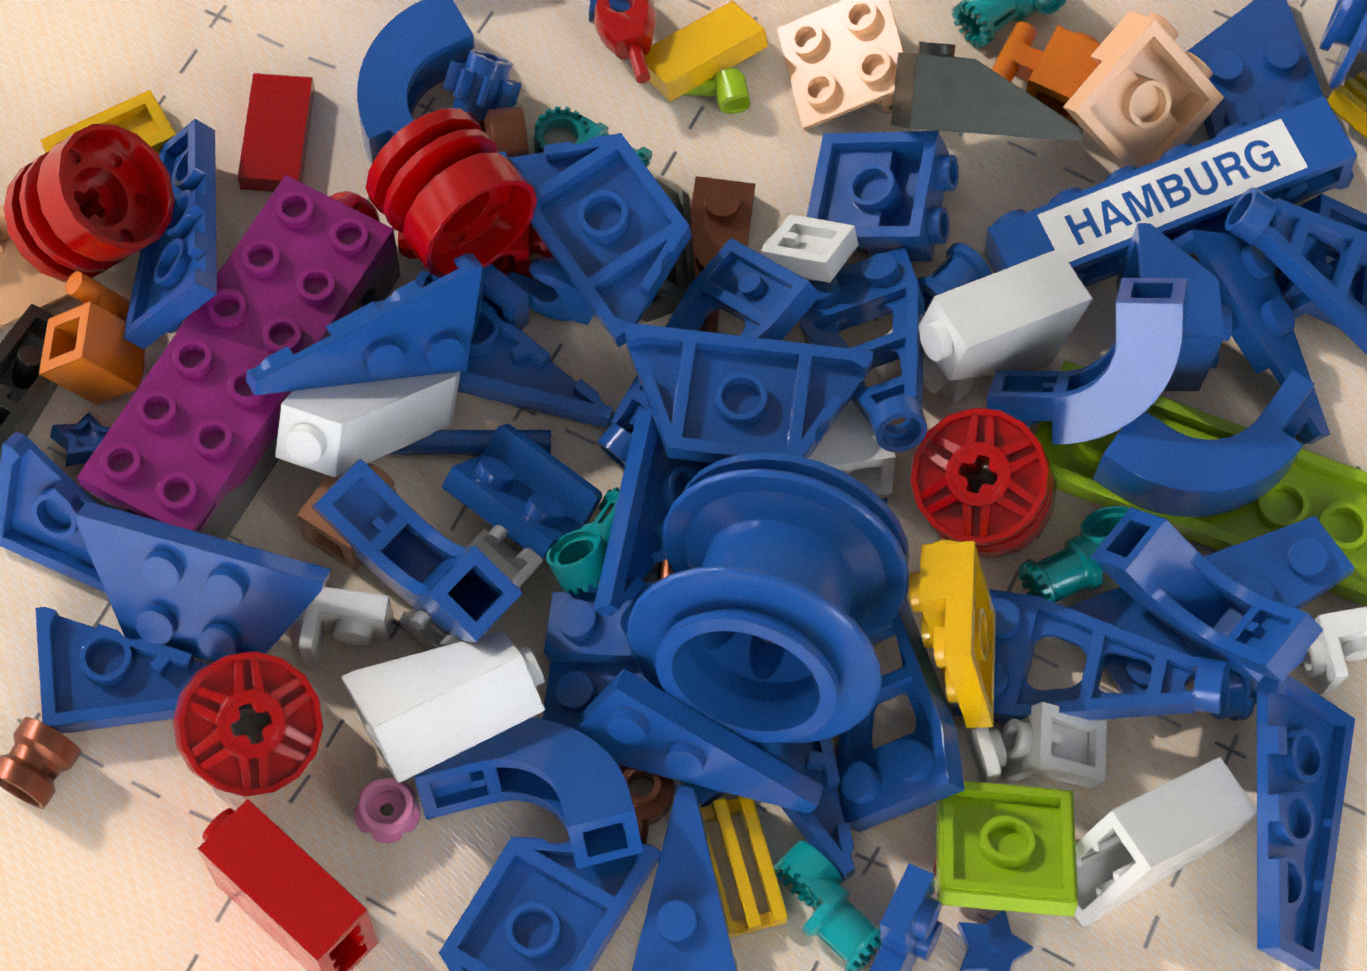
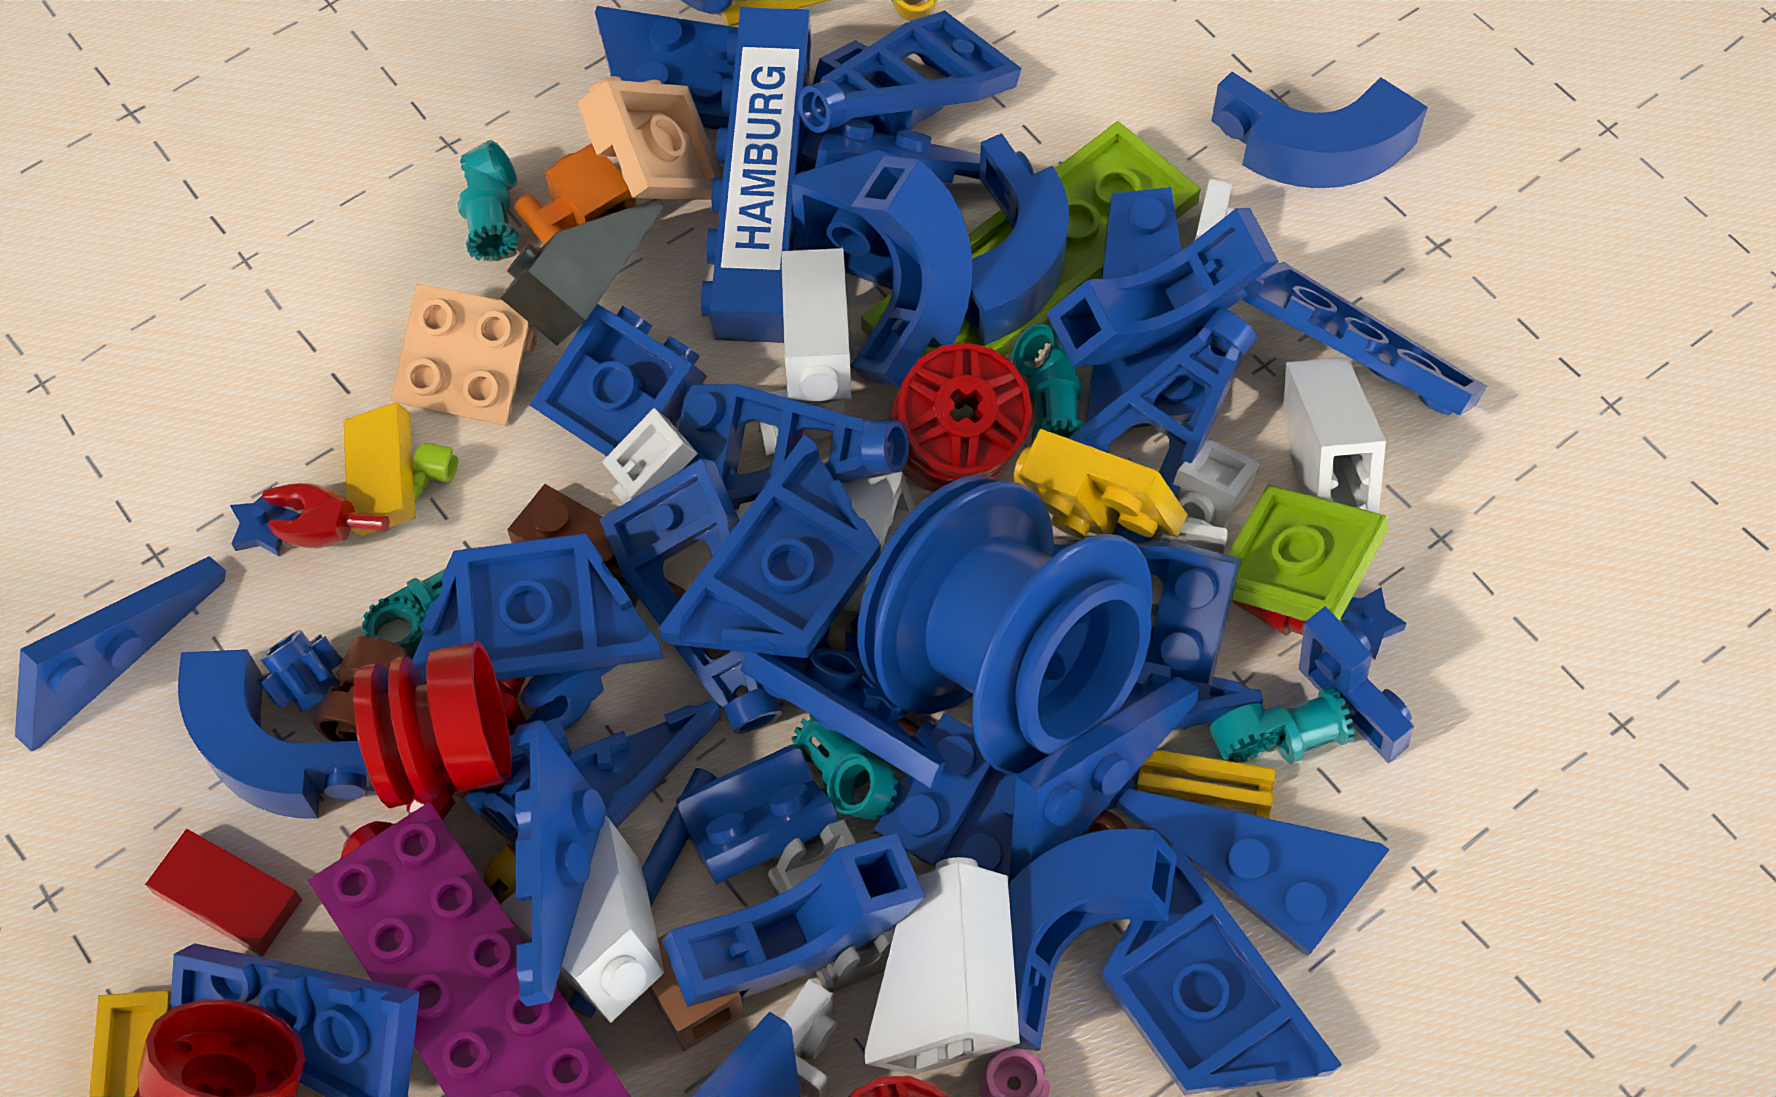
camera: 60 degrees left, 5 degrees down
(959, 268) = (736, 360): blue bush -> none

